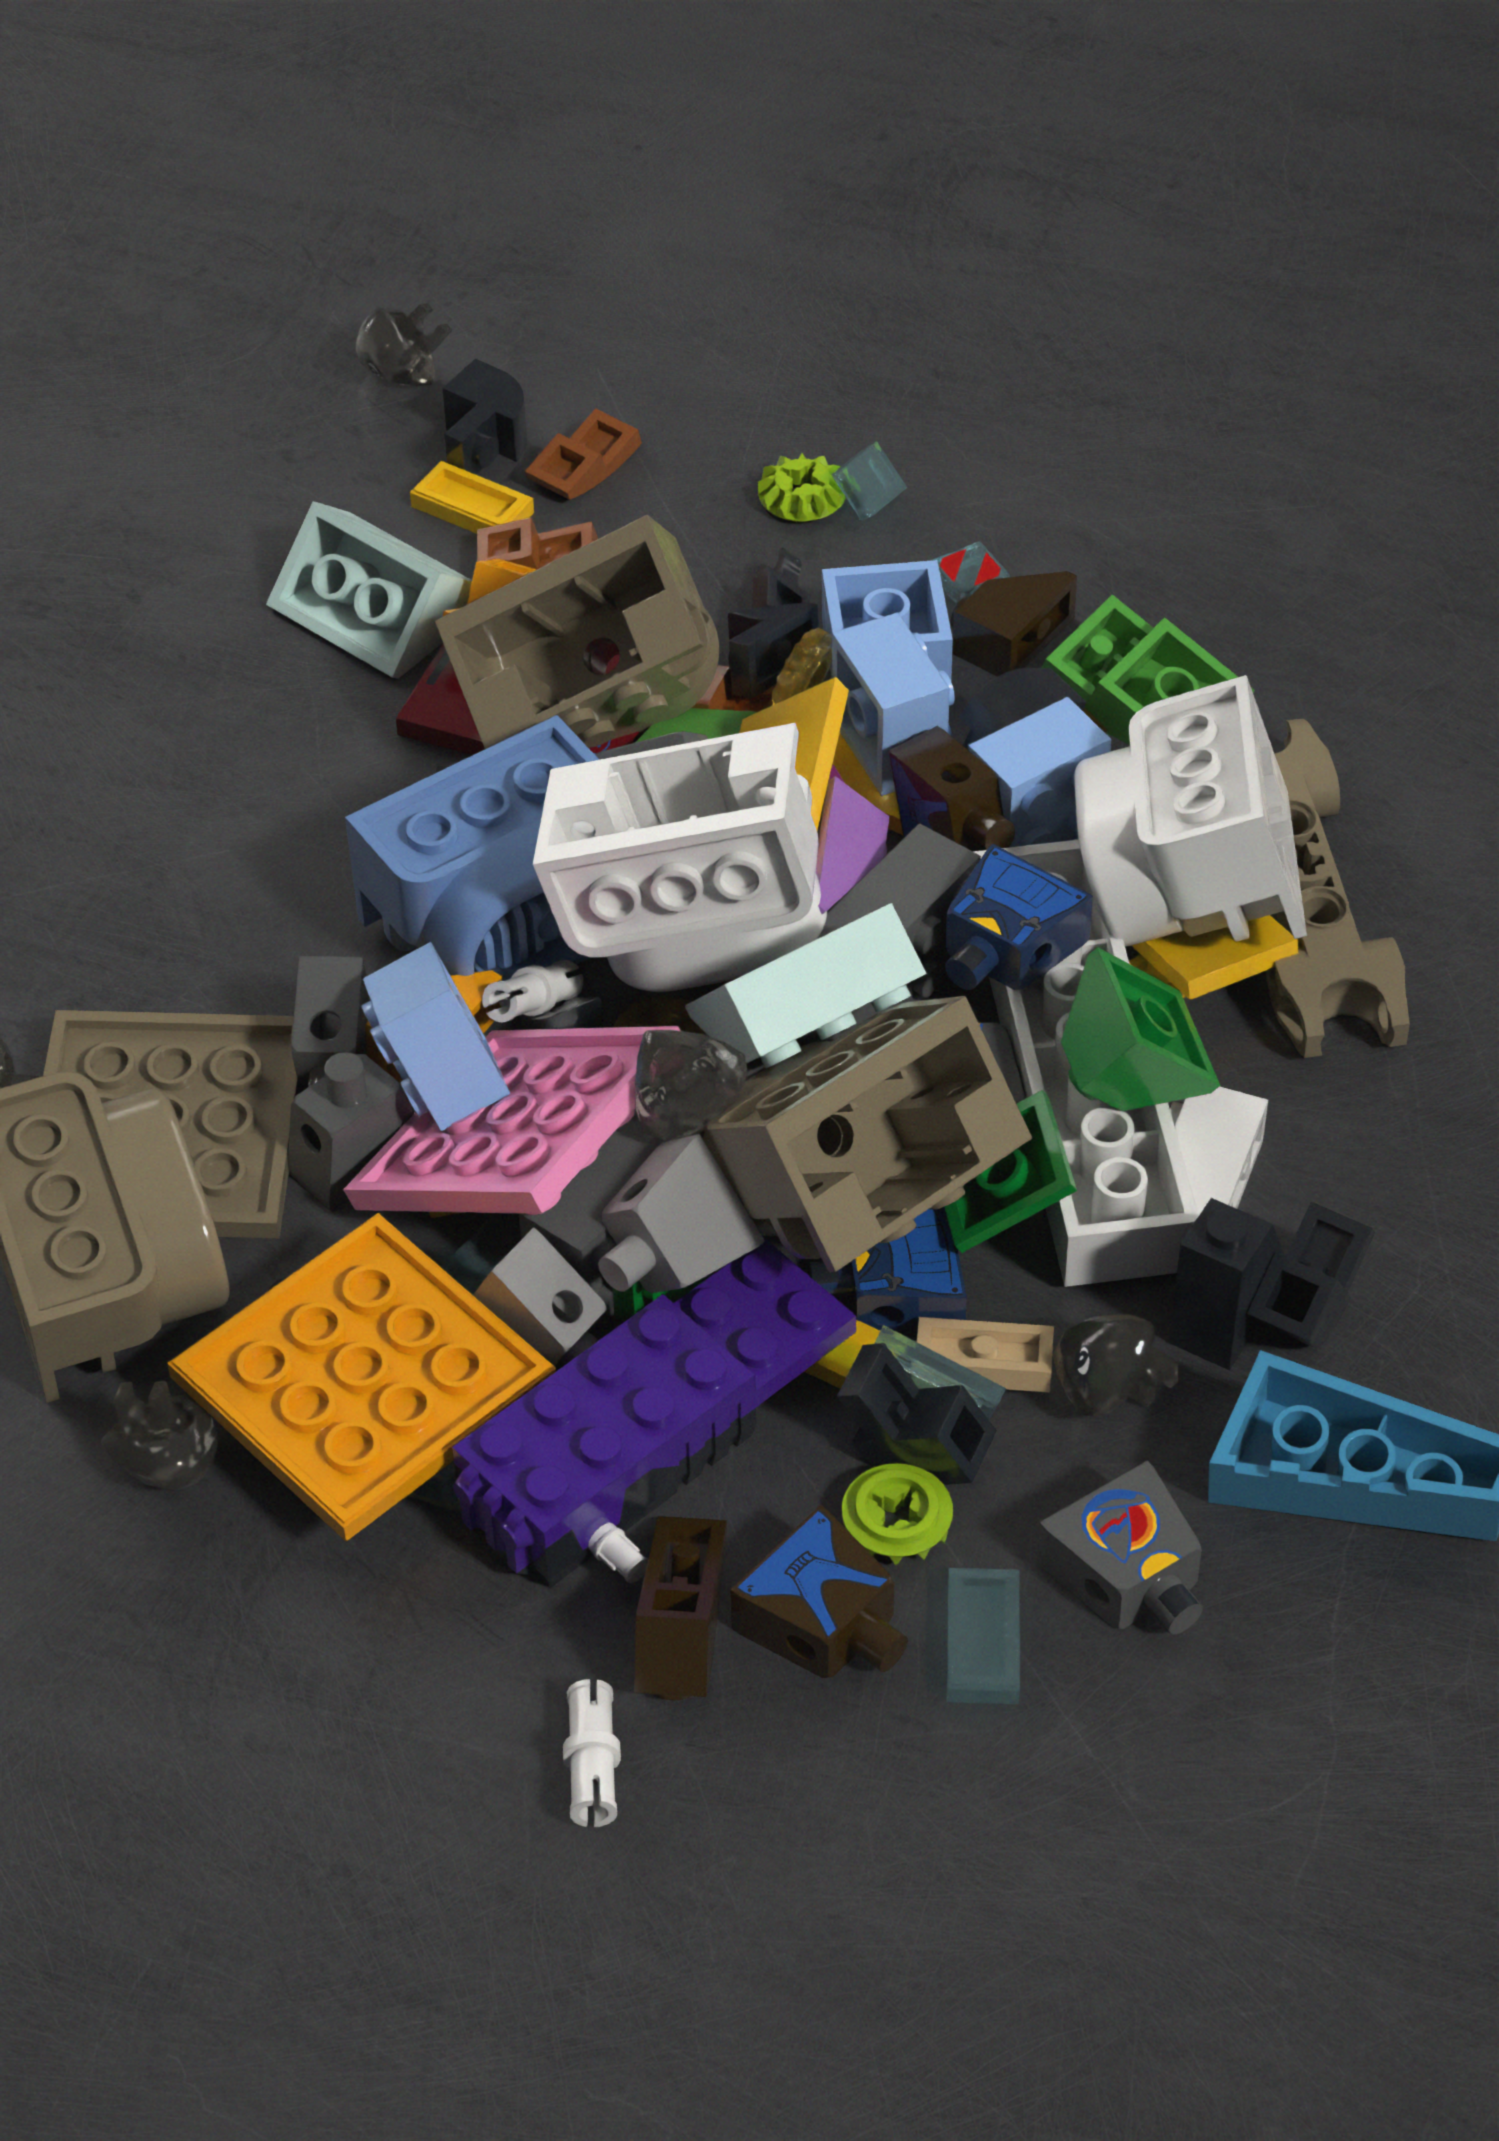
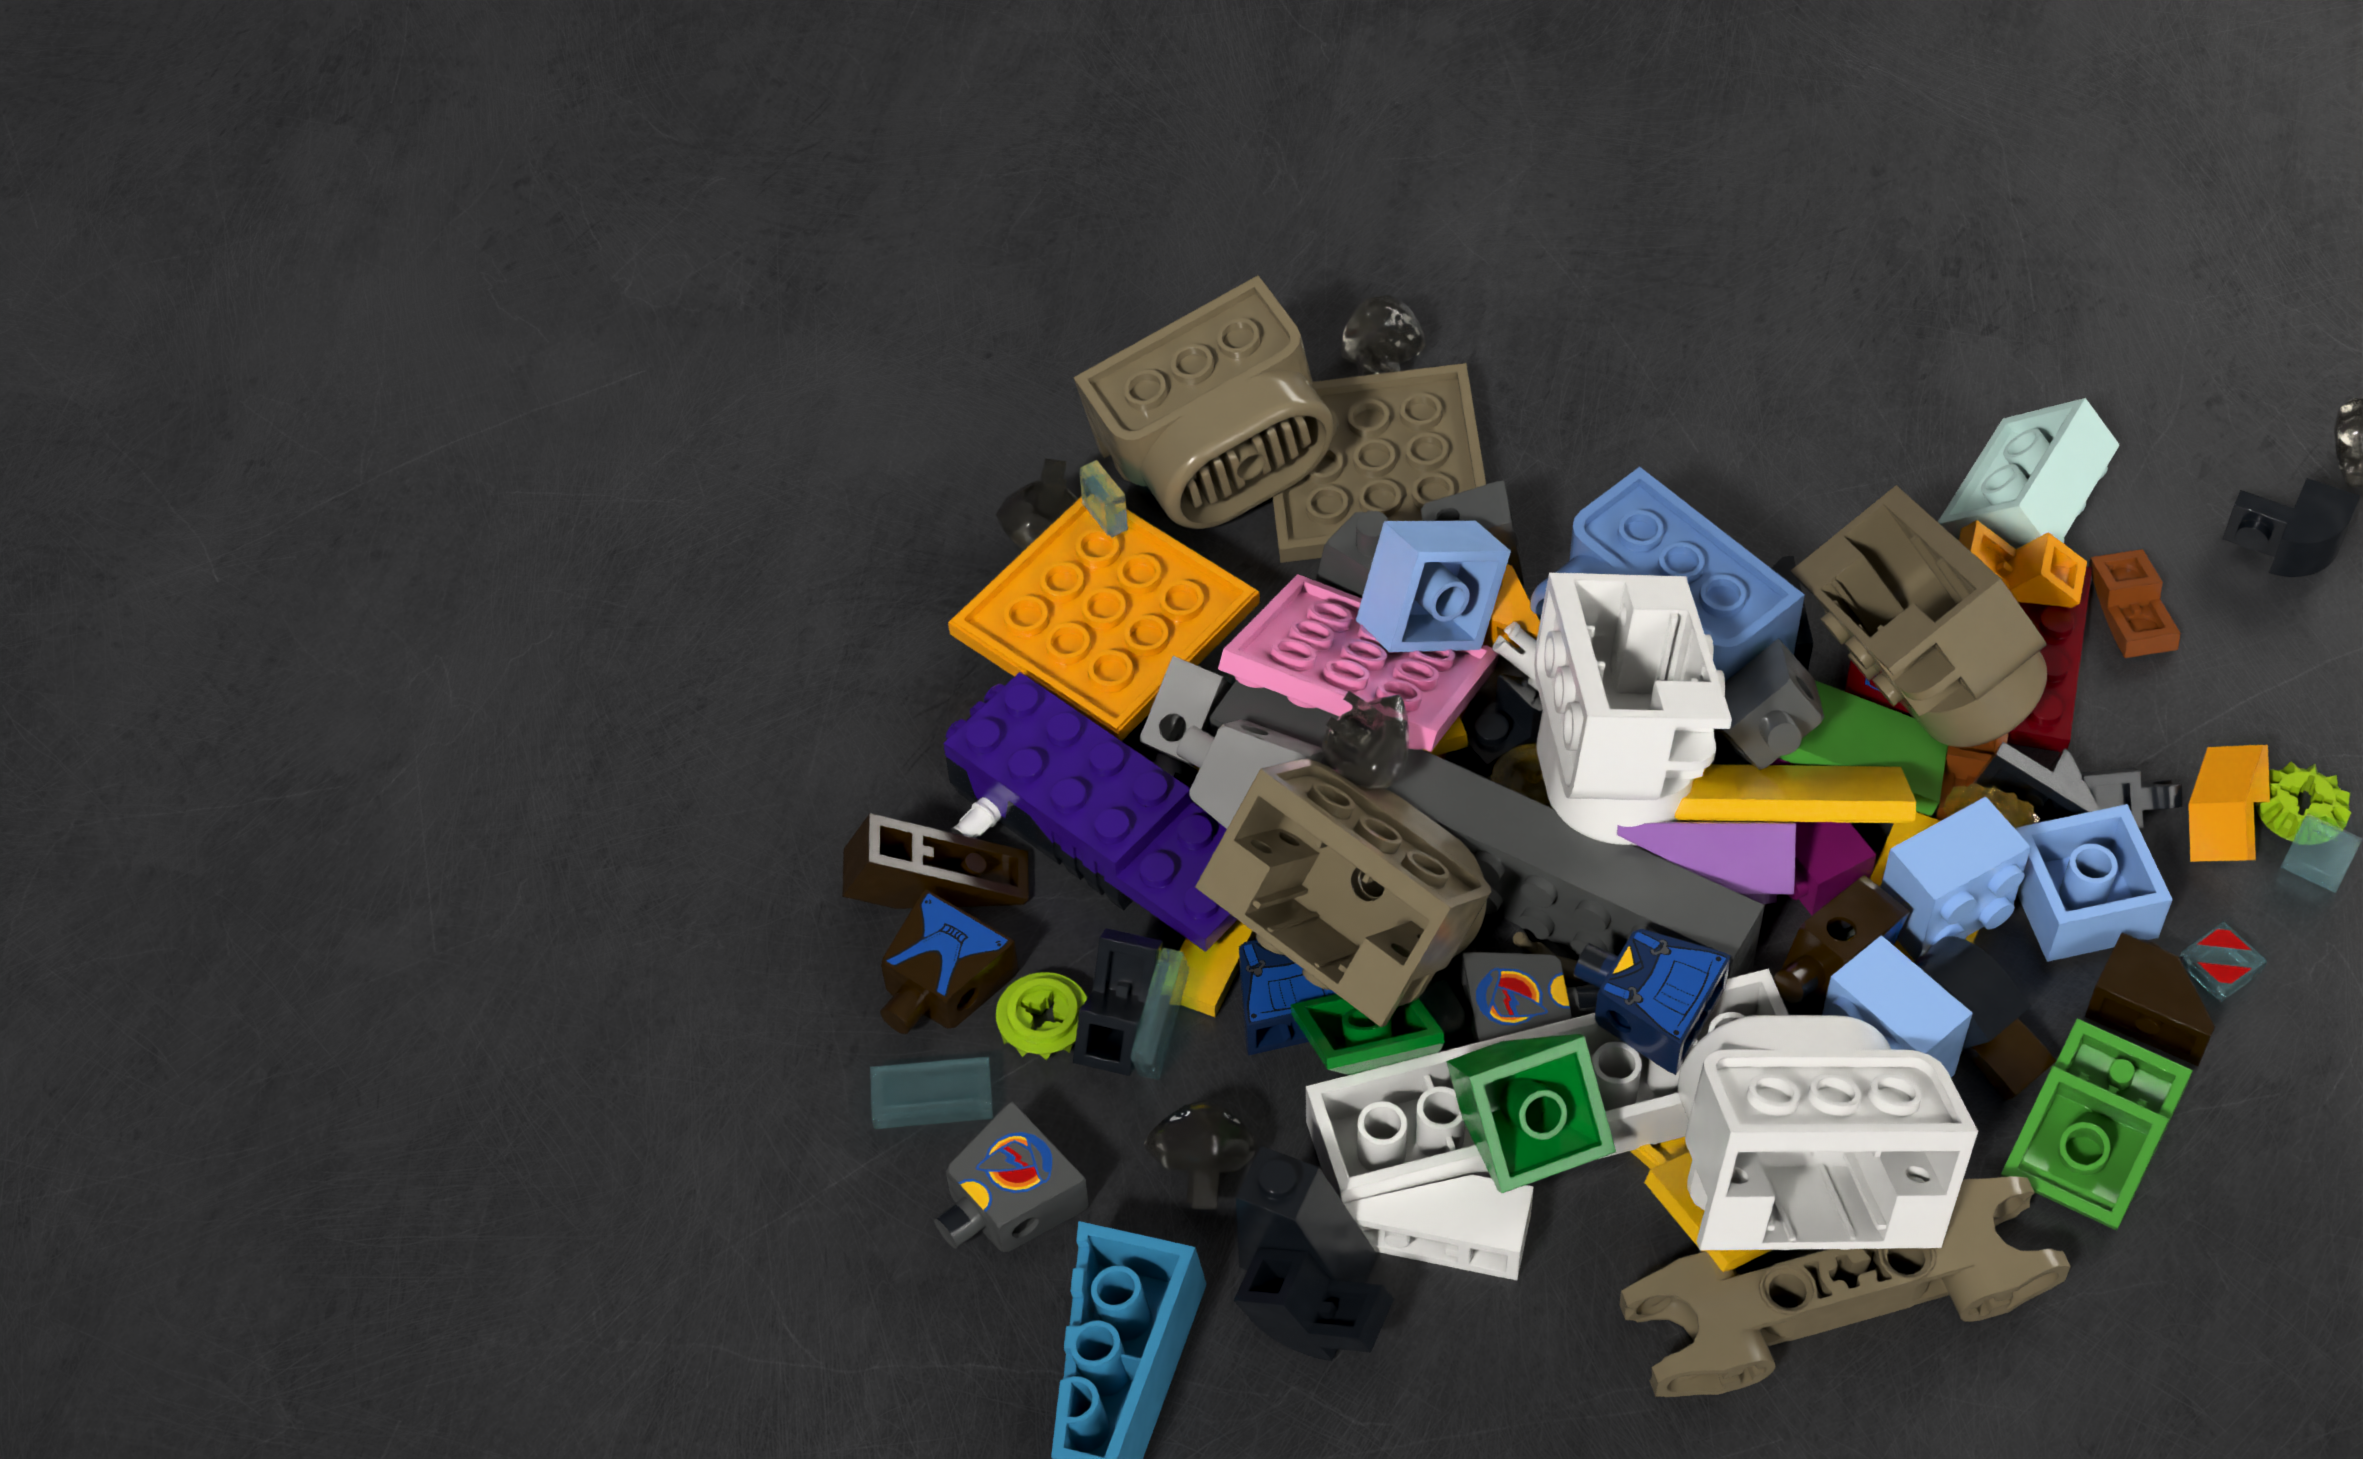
camera: 85 degrees right, 5 degrees up
(217, 1329) = (1103, 499): none -> clear light blue tile
(468, 499) = (2191, 543): yellow tile -> none
(586, 458) = (2270, 615): dark orange slope -> none
(591, 1753) = (794, 833): white pin -> none
(807, 520) = (2224, 803): none -> light orange slope
(812, 988) = (1499, 822): light aqua slope -> none
(1002, 1352) = (1211, 1054): tan plate -> none

